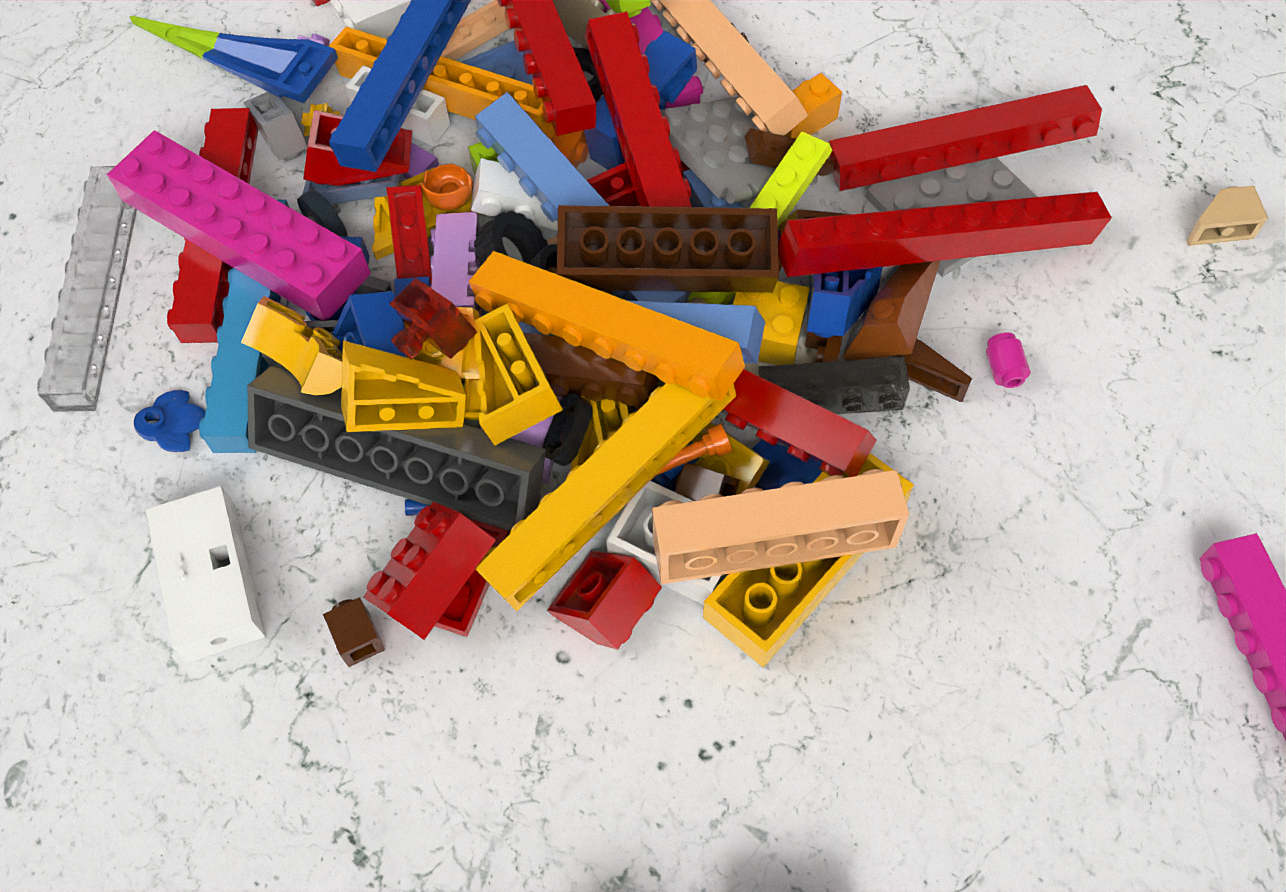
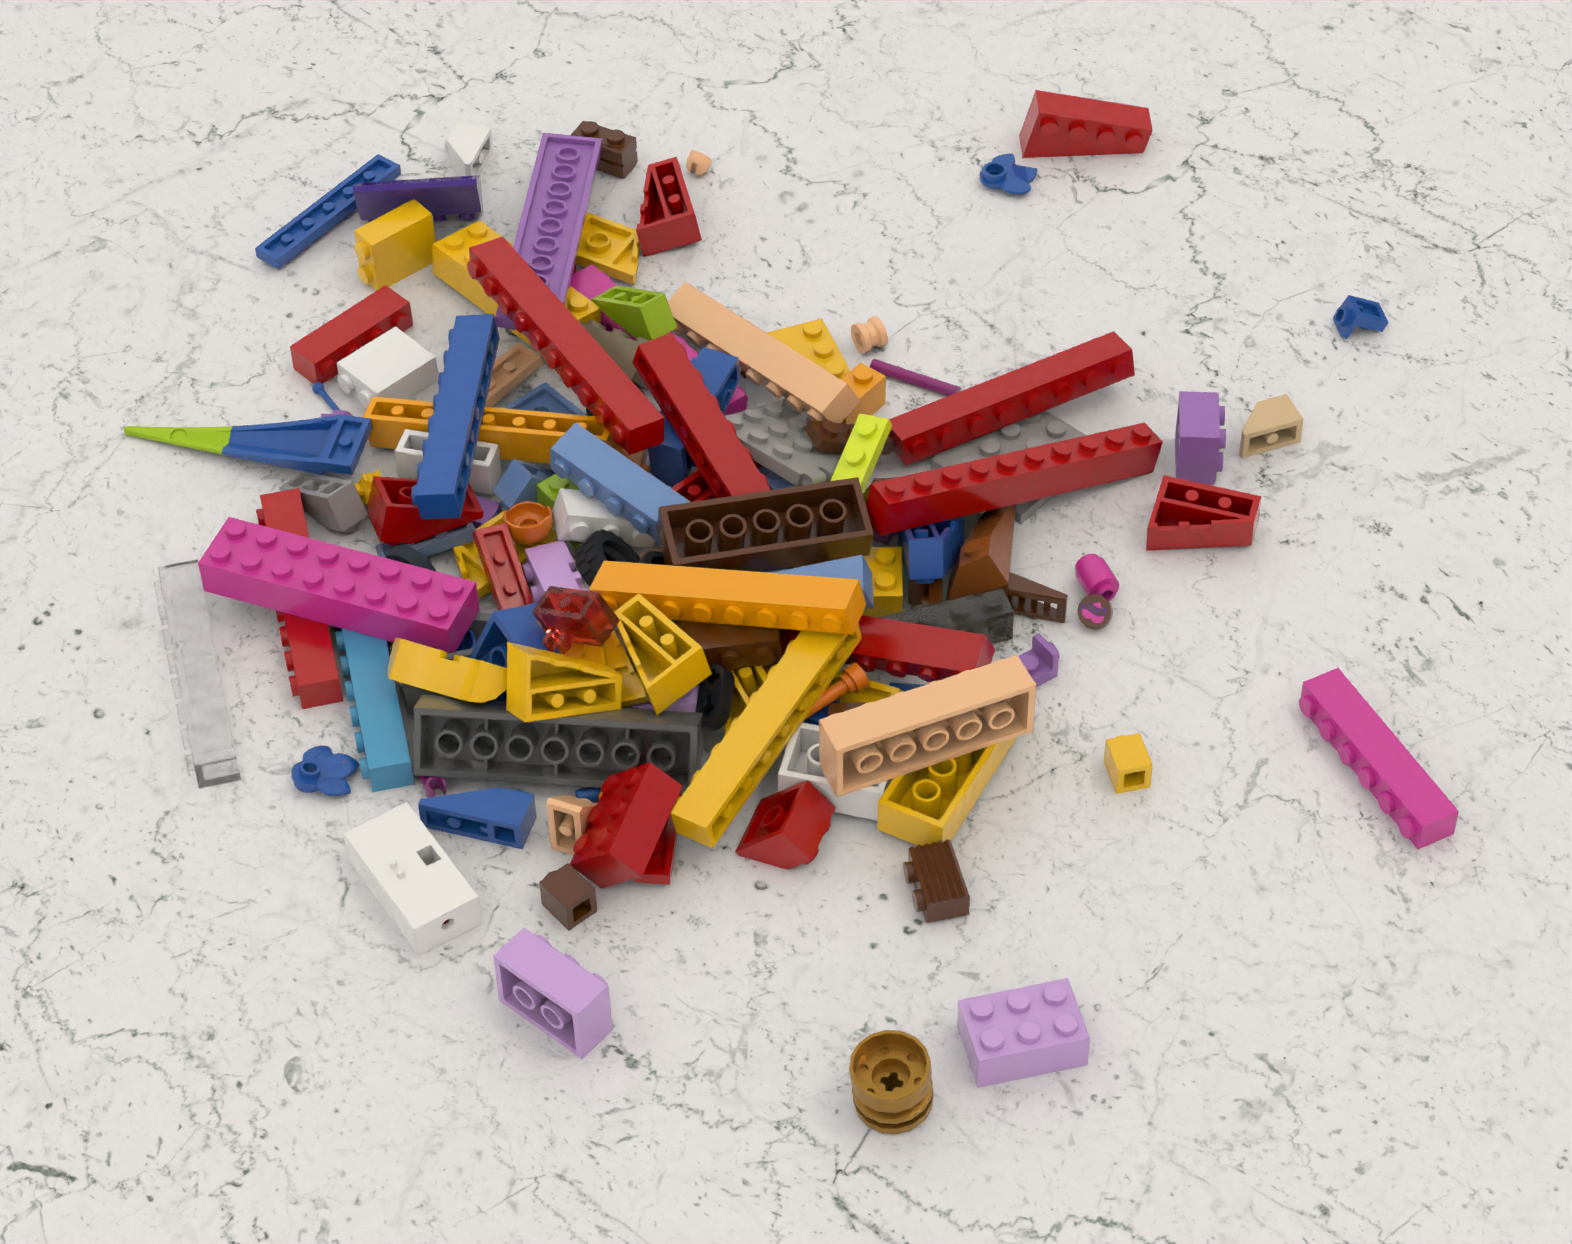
camera: 15 degrees left, 15 degrees down
(266, 459) = (433, 783): none -> magenta hand
(291, 763) = (553, 992): none -> lavender brick
(307, 510) = (486, 815): none -> blue slope
(315, 8) = (318, 388): none -> blue hinge
(378, 536) = (567, 821): none -> light nougat slope
(453, 141) = (520, 482): none -> medium blue slope
(749, 707) = (937, 881): none -> reddish brown brick
(781, 48) = (815, 343): none -> yellow wing
(839, 43) = (869, 334): none -> light nougat wheel
(873, 97) = (914, 378): none -> magenta bar
(918, 450) = (1041, 660): none -> medium lavender bracket
(994, 598) = (1128, 763): none -> yellow brick
(997, 399) = (1095, 611): none -> reddish brown tile
(1136, 310) = (1201, 516): none -> red wedge
(1151, 218) = (1199, 437): none -> medium lavender brick

